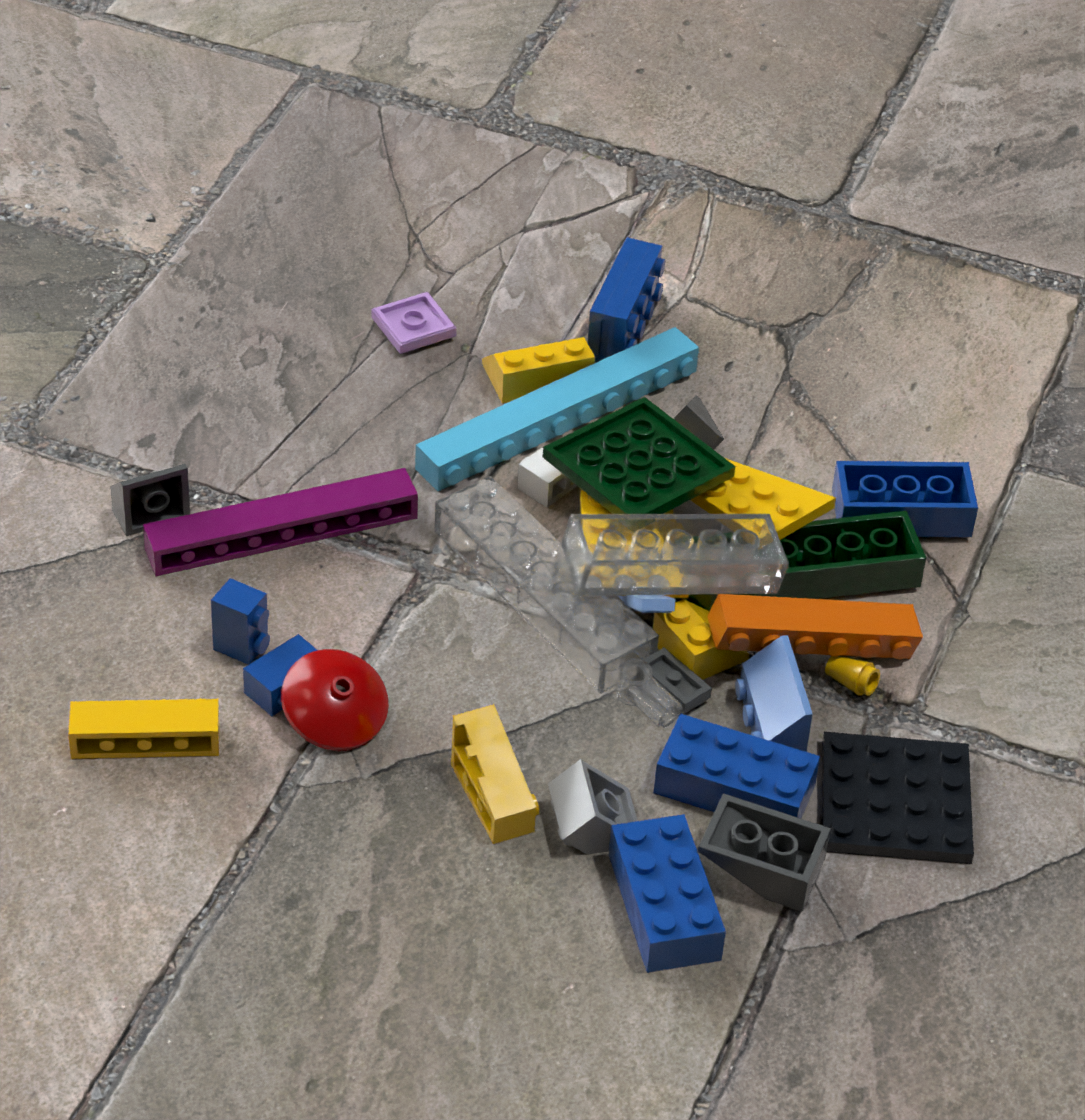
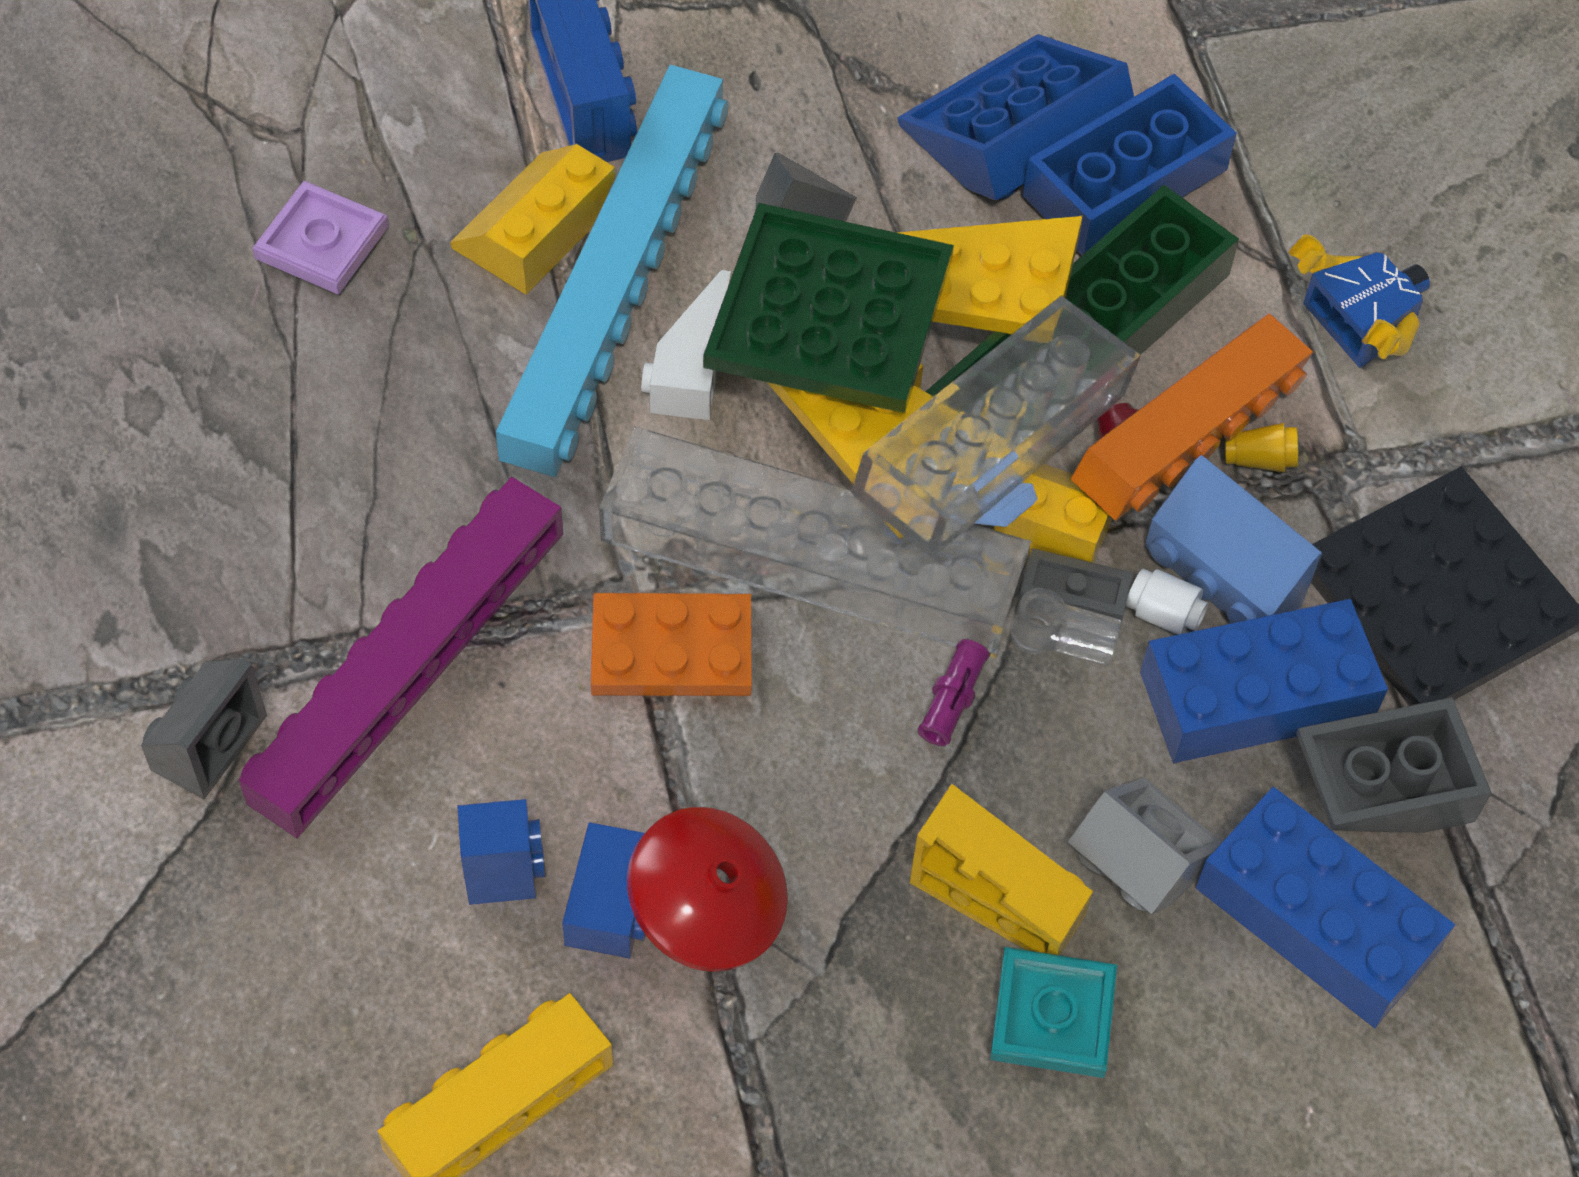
camera: 35 degrees left, 15 degrees up
(425, 592) = (671, 644): none -> orange plate
(468, 857) = (1054, 1012): none -> teal plate
(556, 690) = (953, 692): none -> magenta pin
(719, 708) = (1167, 601): none -> white brick
(832, 440) = (1015, 109): none -> blue slope
(986, 633) = (1362, 300): none -> blue torso

